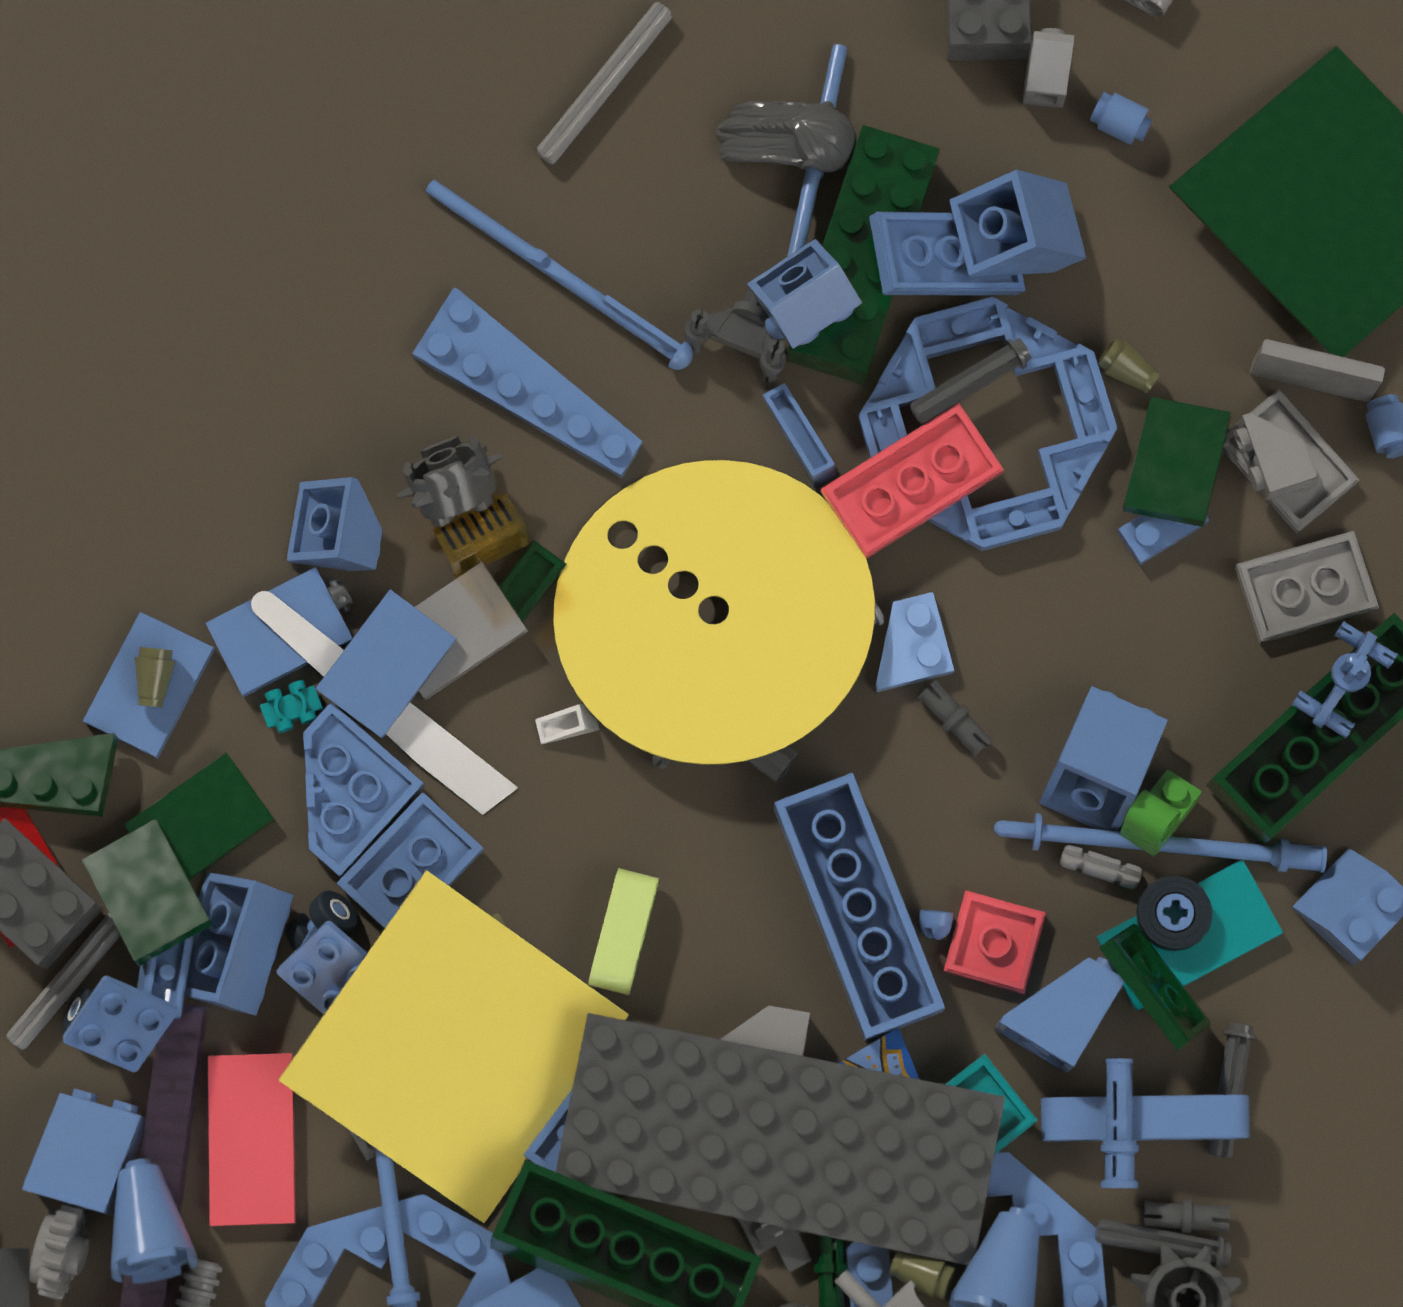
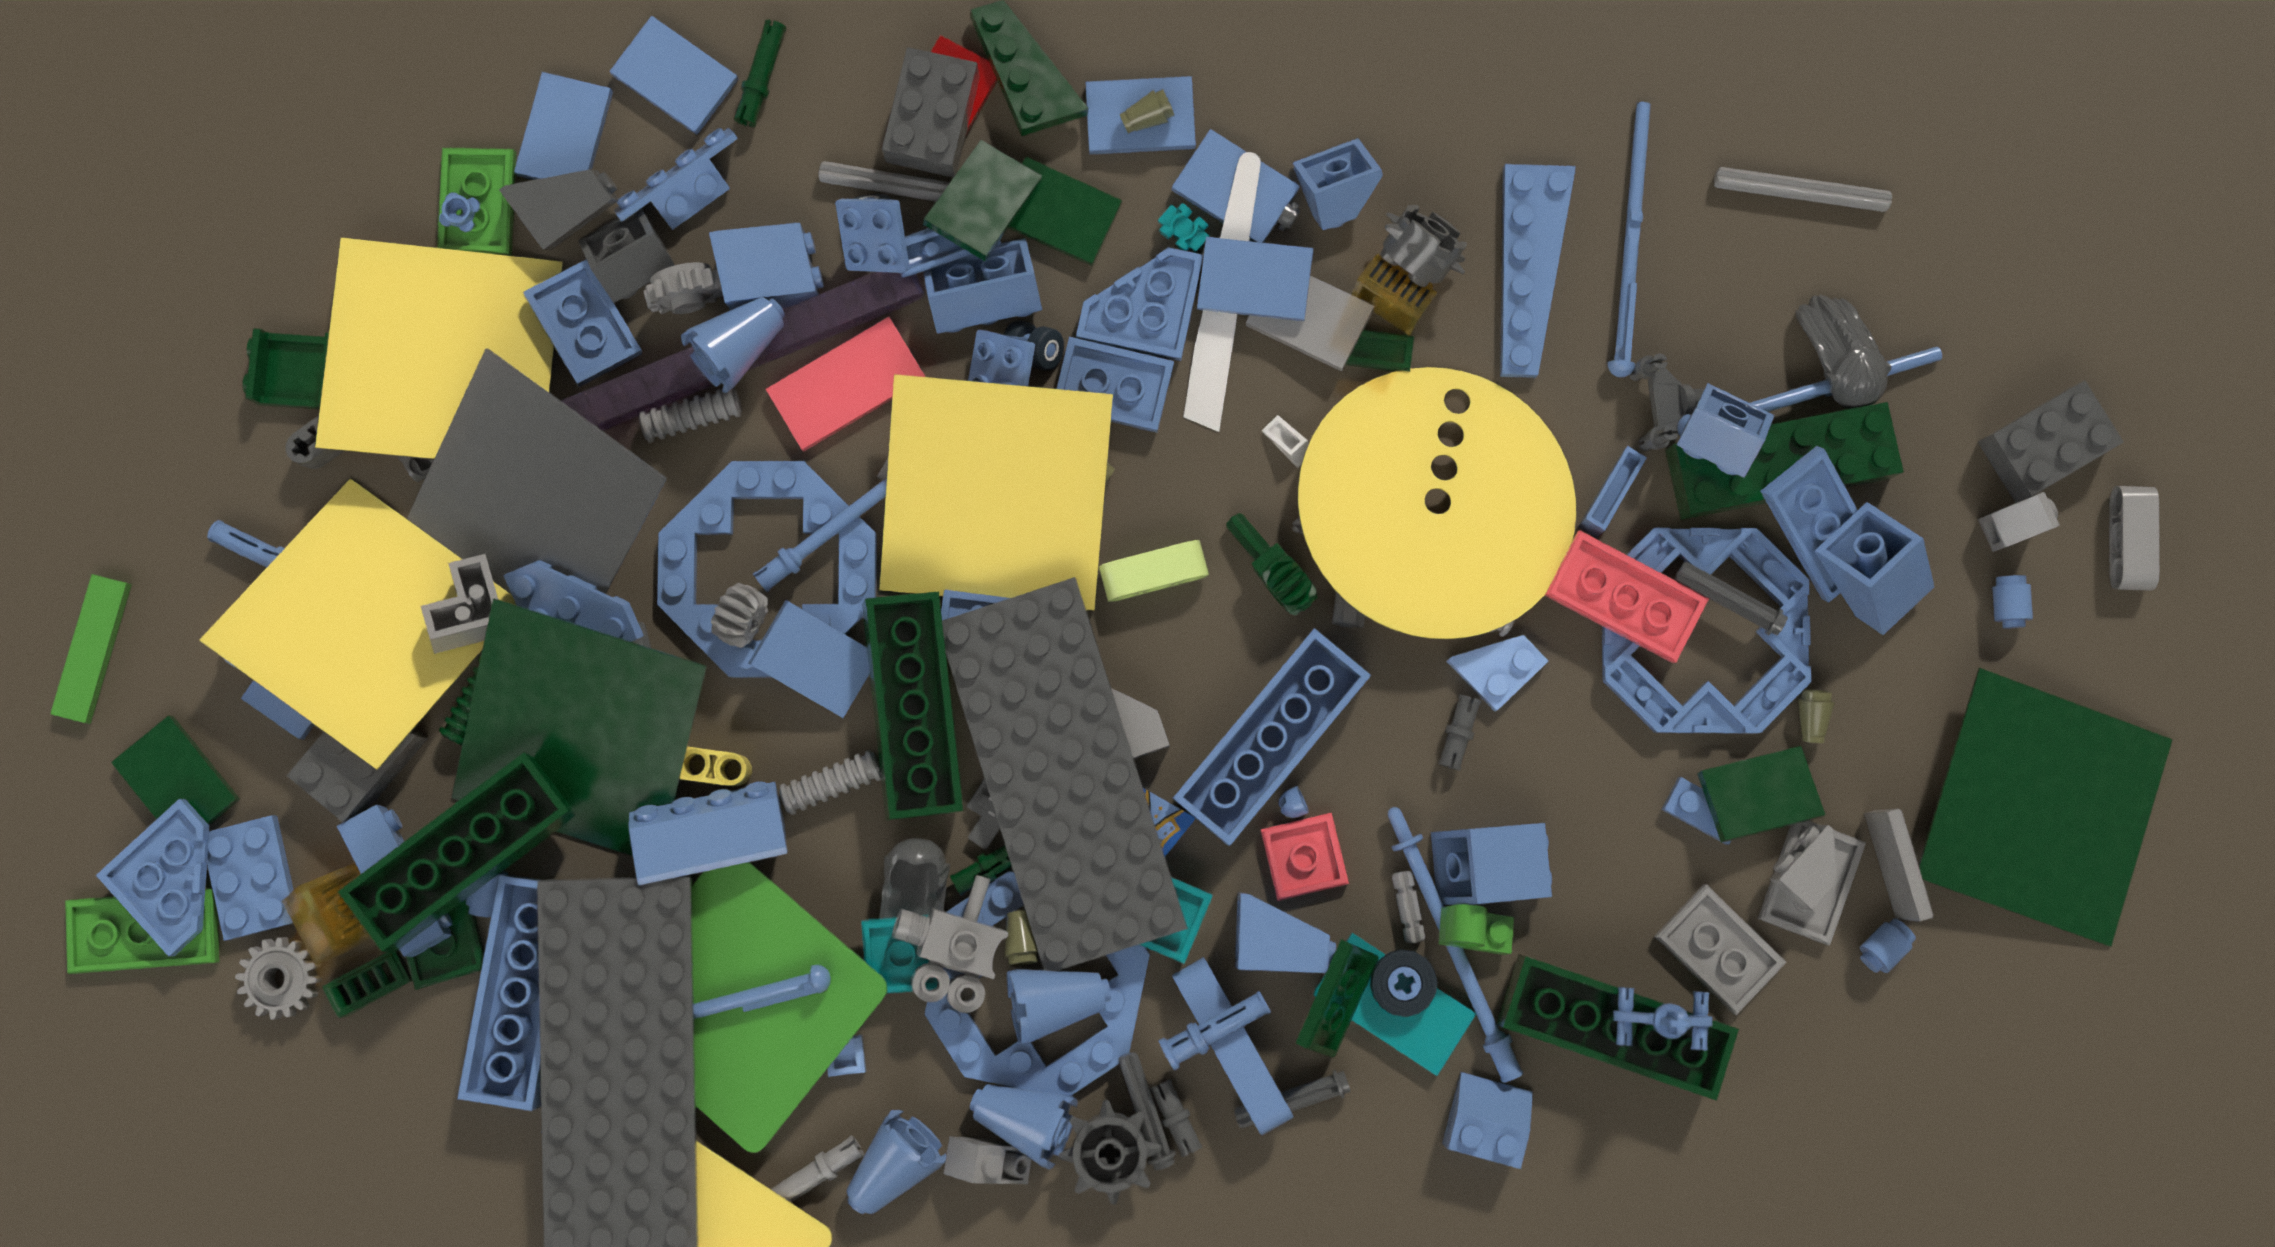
camera: 60 degrees right, 5 degrees up
(689, 808) = (1274, 567): none -> dark green gear

